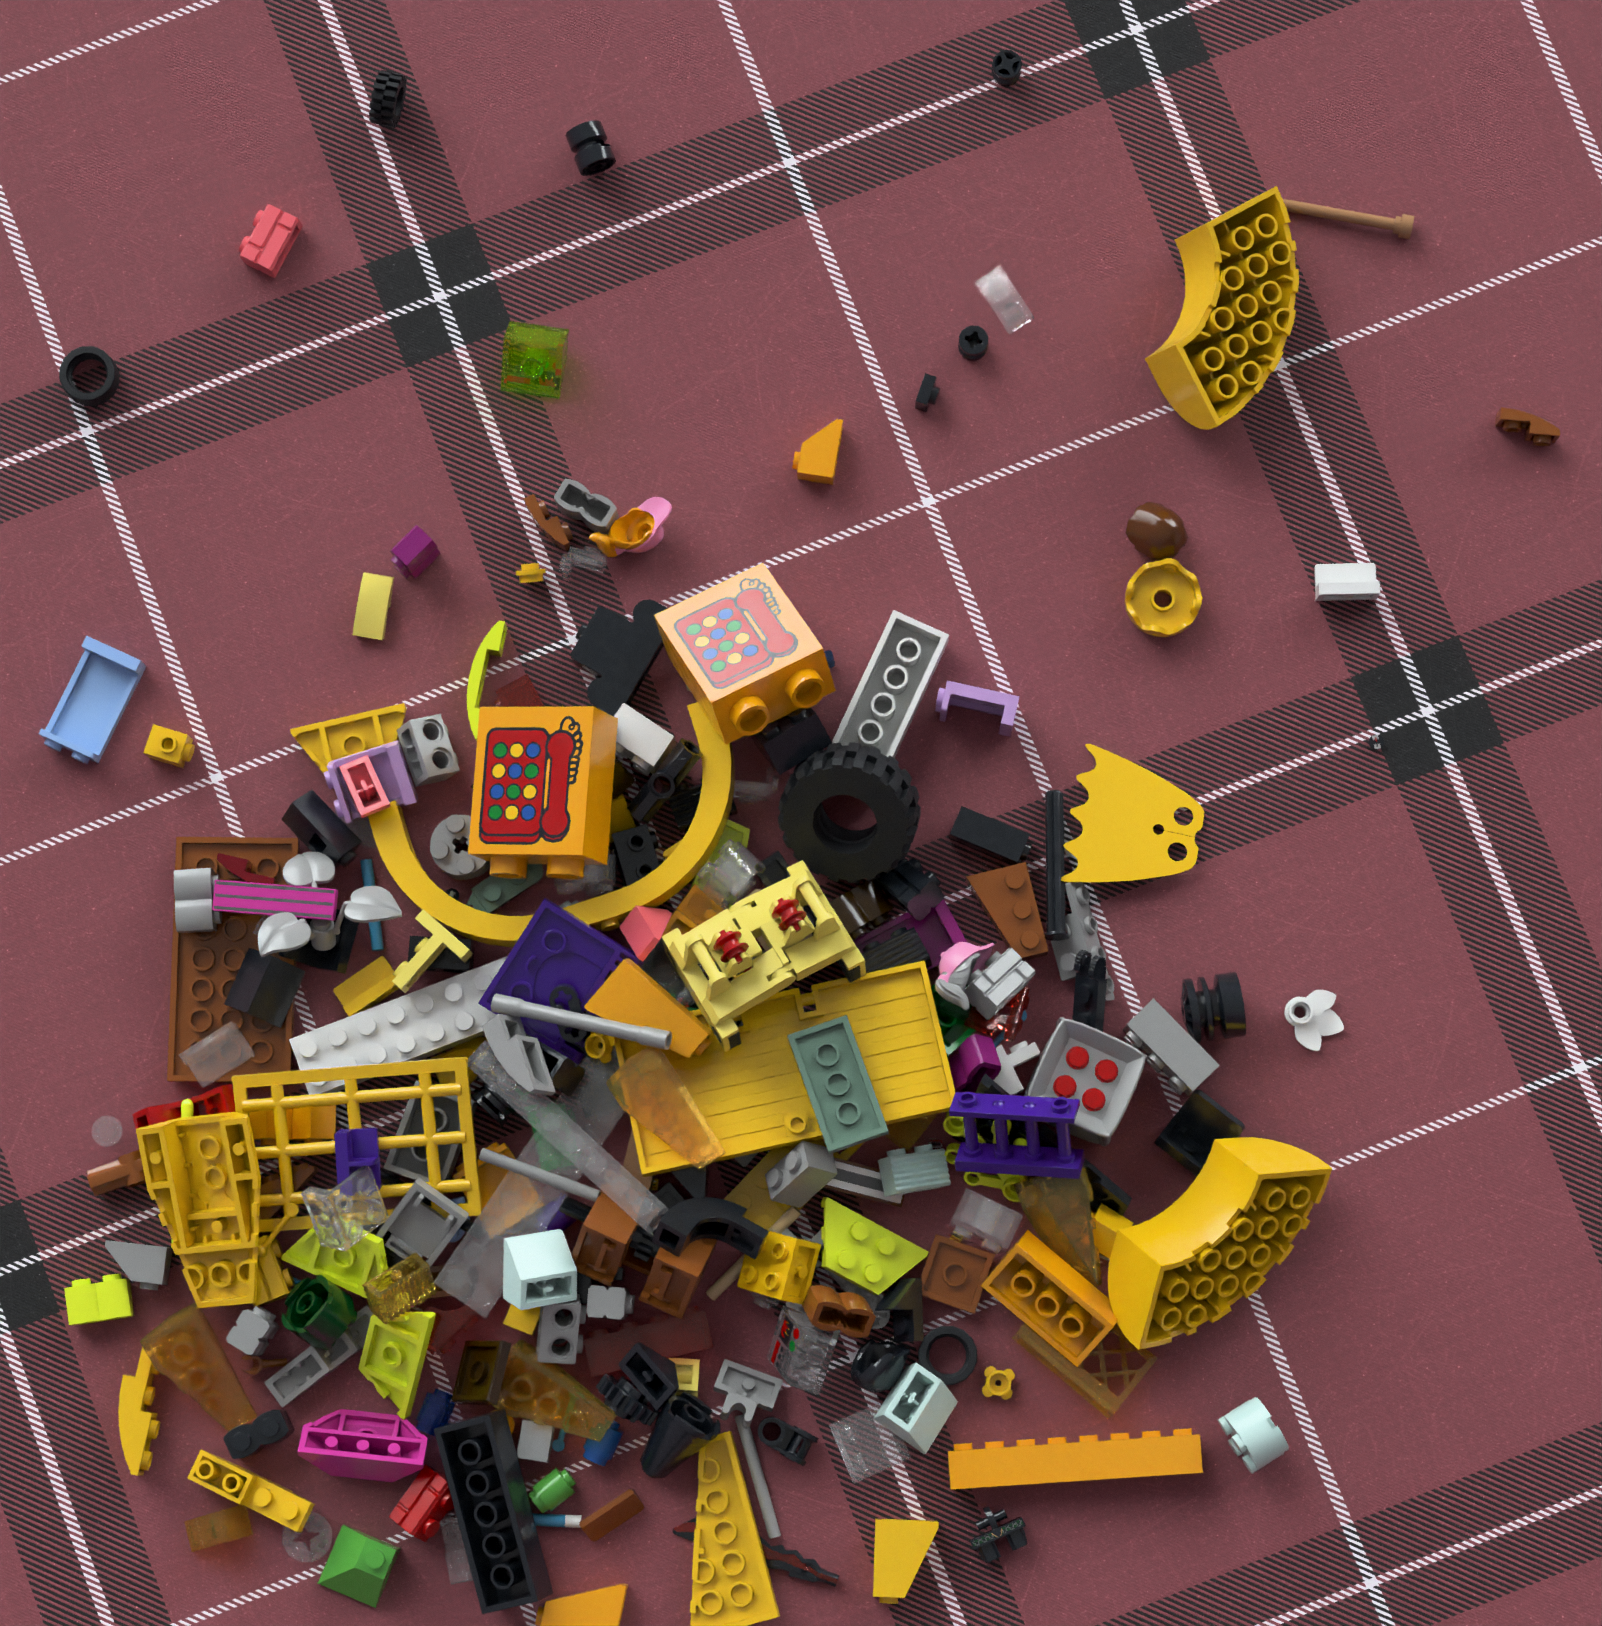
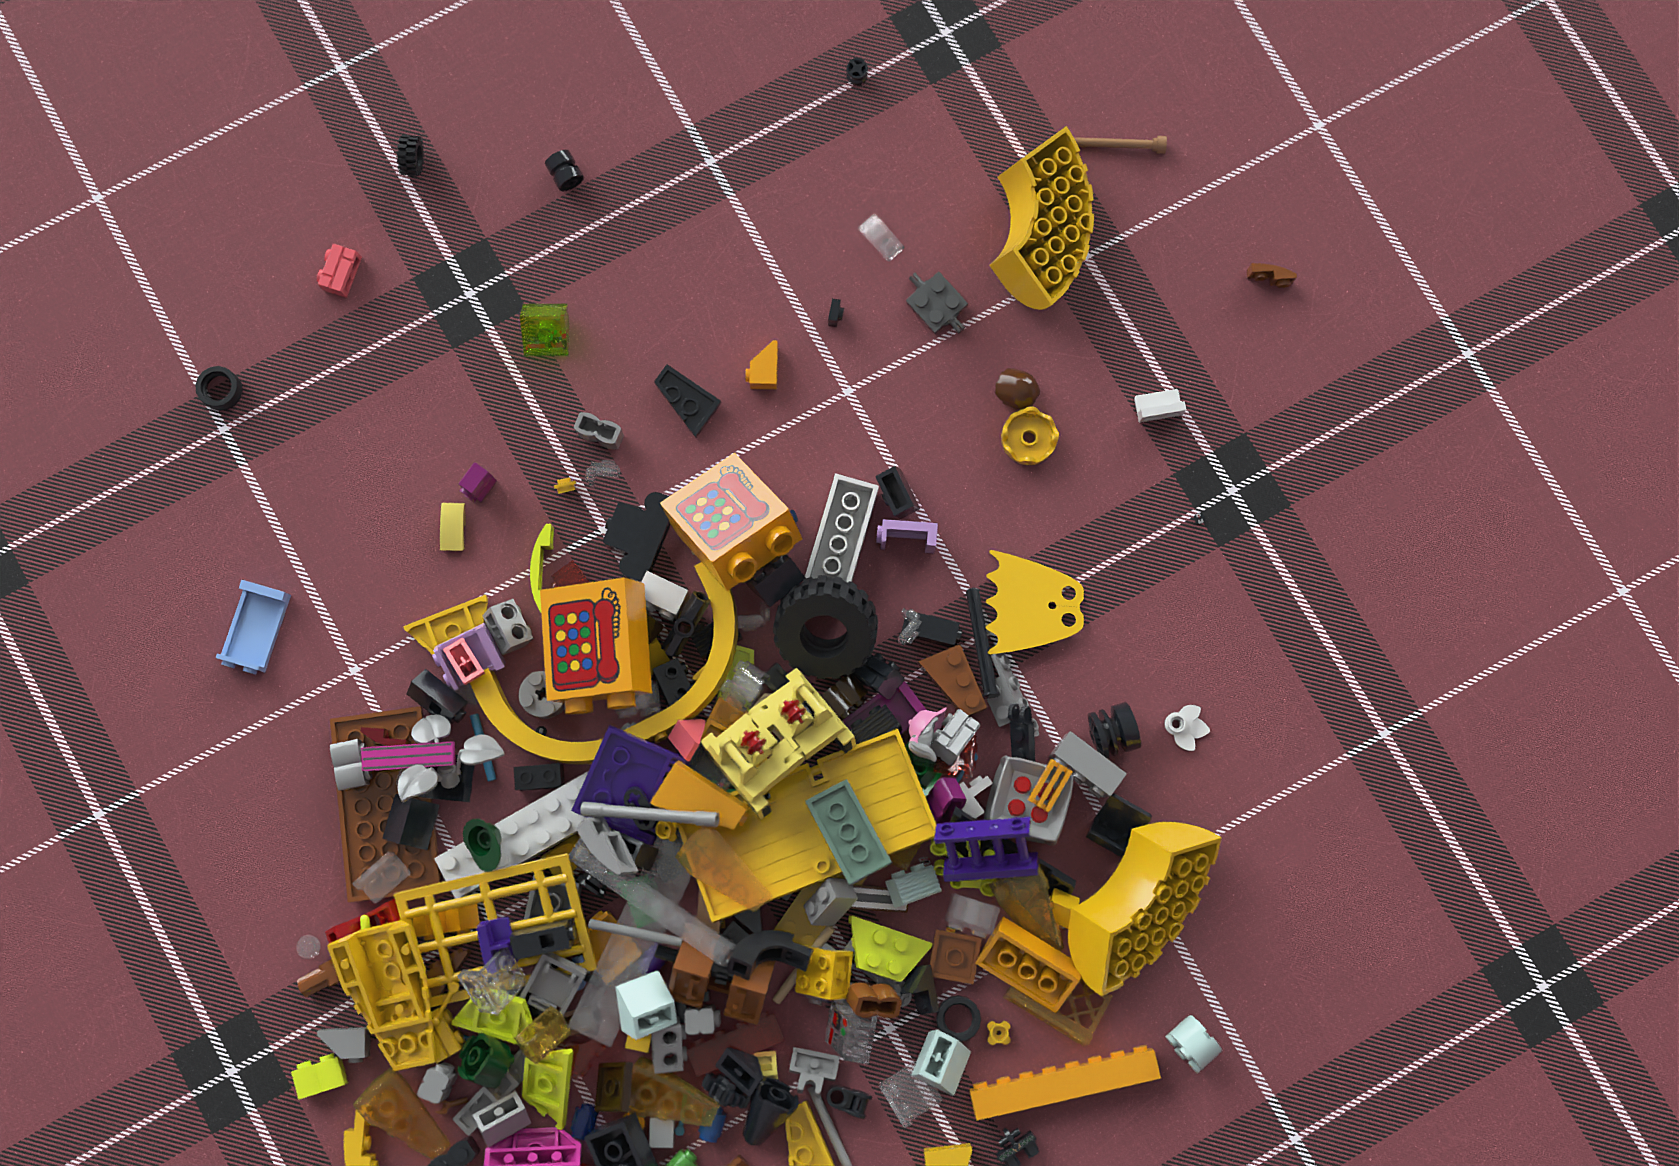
camera: 15 degrees left, 0 degrees up
(169, 746) = (315, 652): yellow brick -> none
(329, 1391) = (501, 1119): none -> light grey brick
(357, 1028) = (483, 843): none -> dark green piece
(366, 987) = (490, 806): yellow panel -> none
(418, 1163) = (542, 939): none -> black brick
(427, 951) = (528, 777): light yellow bracket -> none
(497, 891) = (573, 724): sand green plate -> none
(552, 528) = (579, 452): dark orange slope -> none
(635, 531) = (638, 443): light orange hair -> none
(711, 480) = (687, 398): none -> black wing
(878, 1365) = (909, 1034): black hair -> none
(960, 836) = (909, 633): none -> clear bracket
(972, 349) = (863, 277): black wheel -> none
(973, 647) = (897, 492): none -> black brick
(1066, 399) = (937, 302): none -> dark grey plate
(1121, 1072) = (1058, 789): none -> light orange tile

